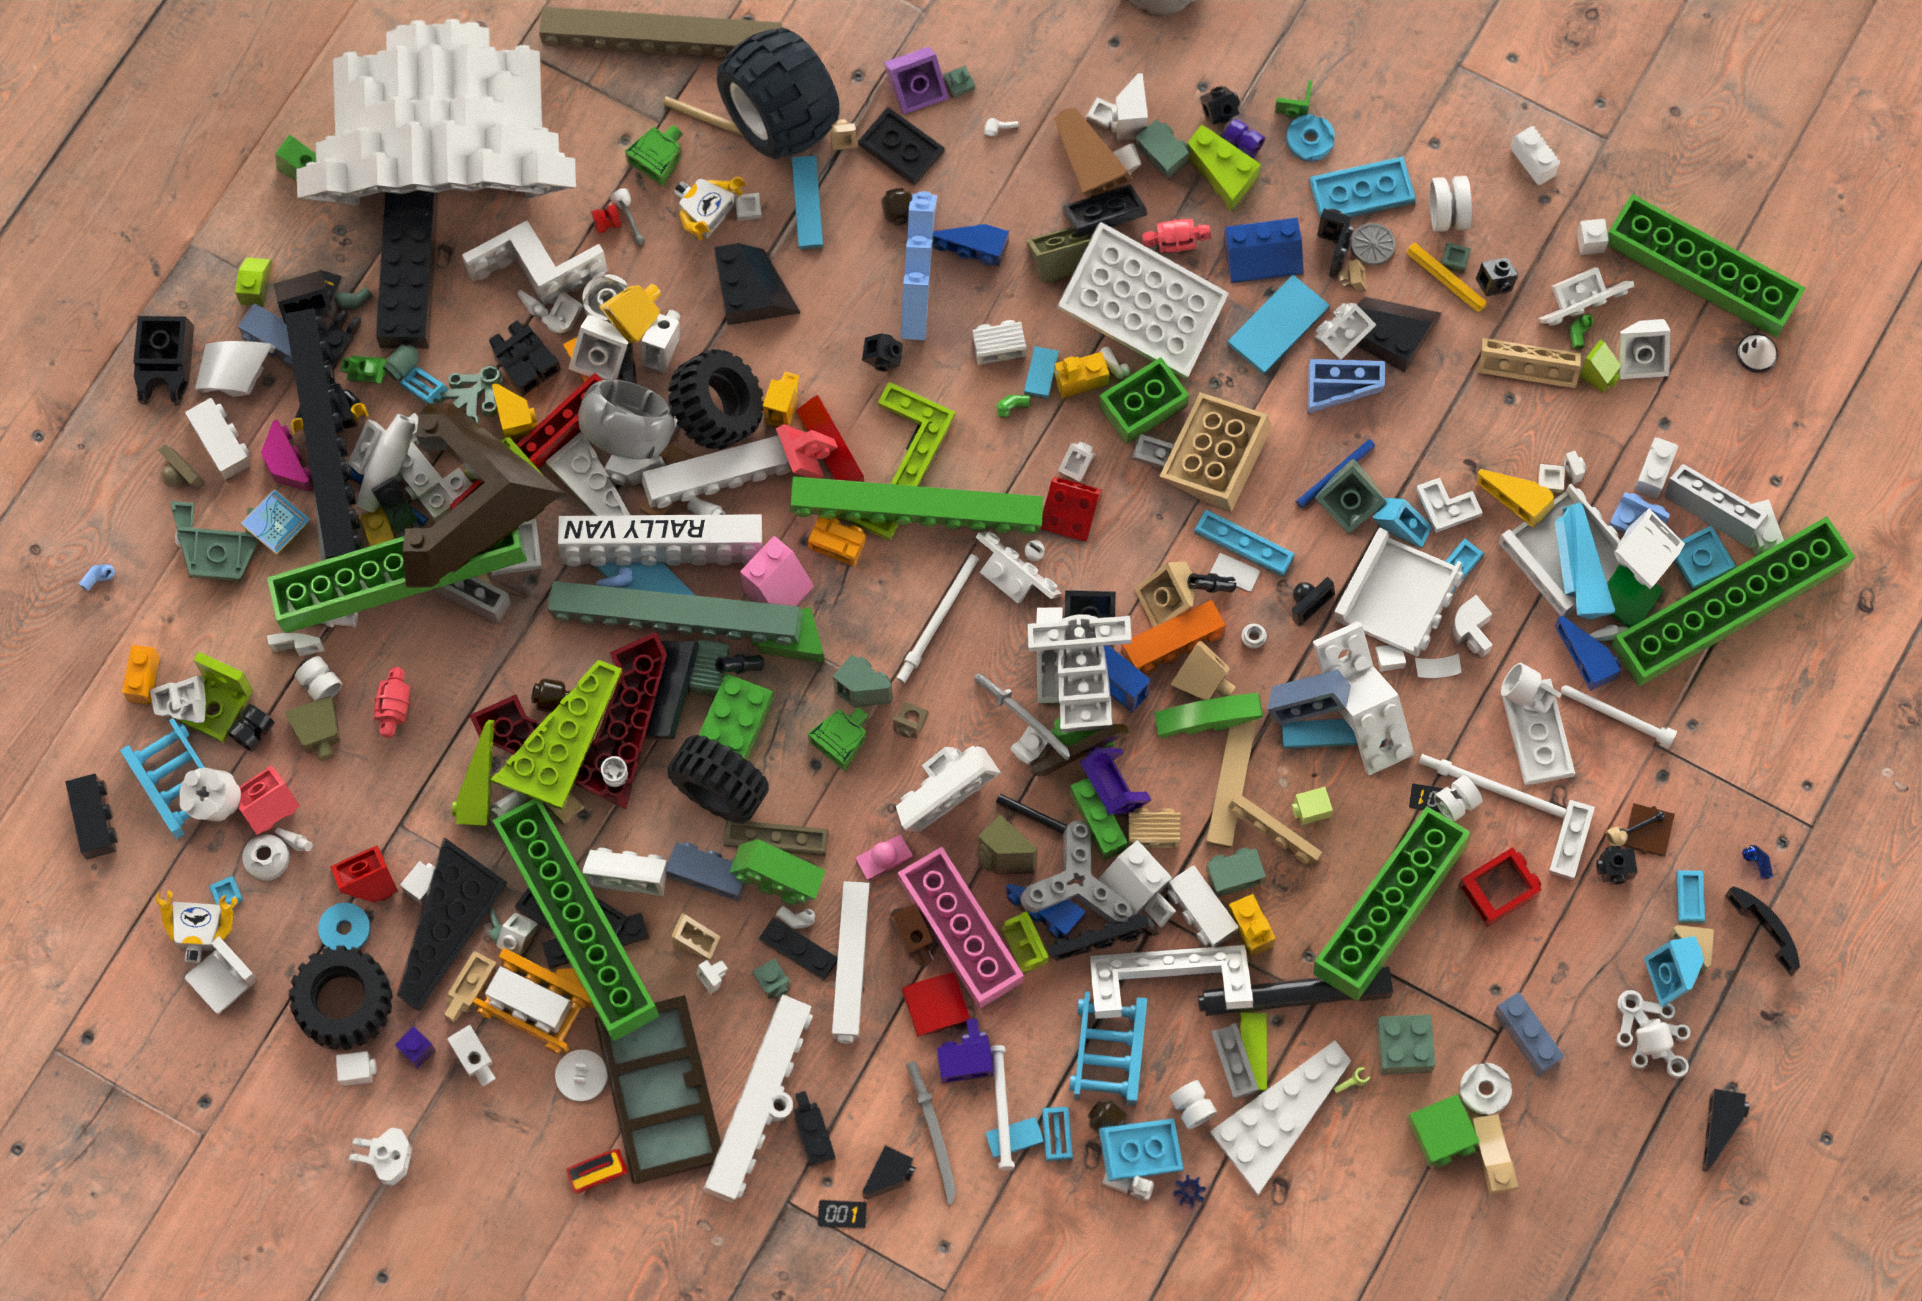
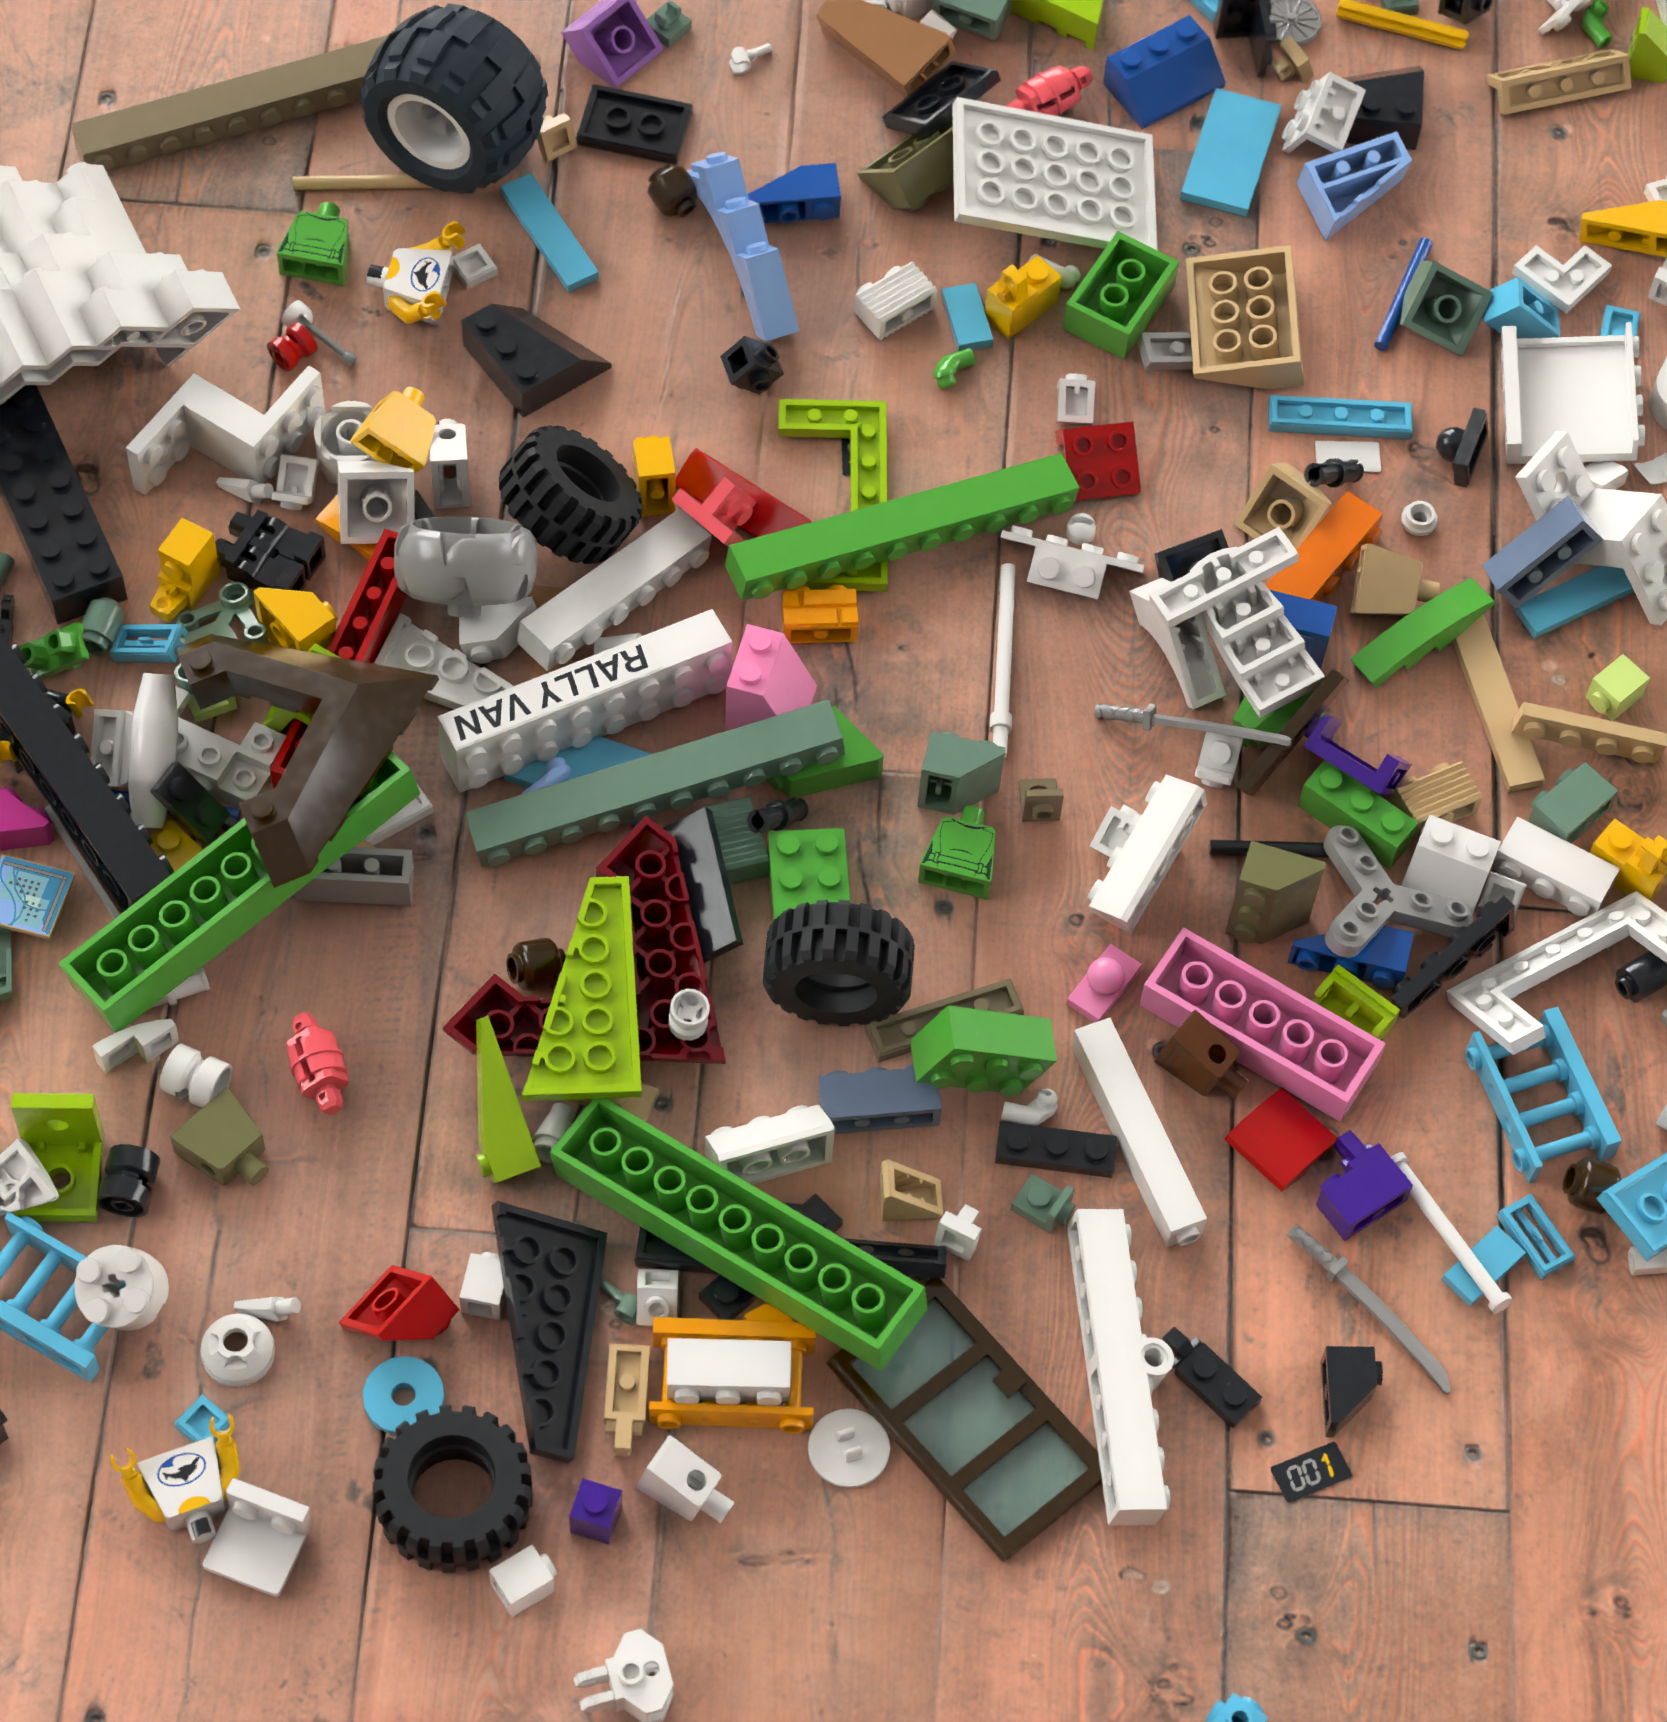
camera: 30 degrees left, 10 degrees down
(266, 800) = (203, 1269): coral slope -> none
(467, 348) = (187, 569): none -> yellow hinge
(596, 1170) = (944, 1566): slope -> none
(662, 971) = (909, 1259): none -> black plate

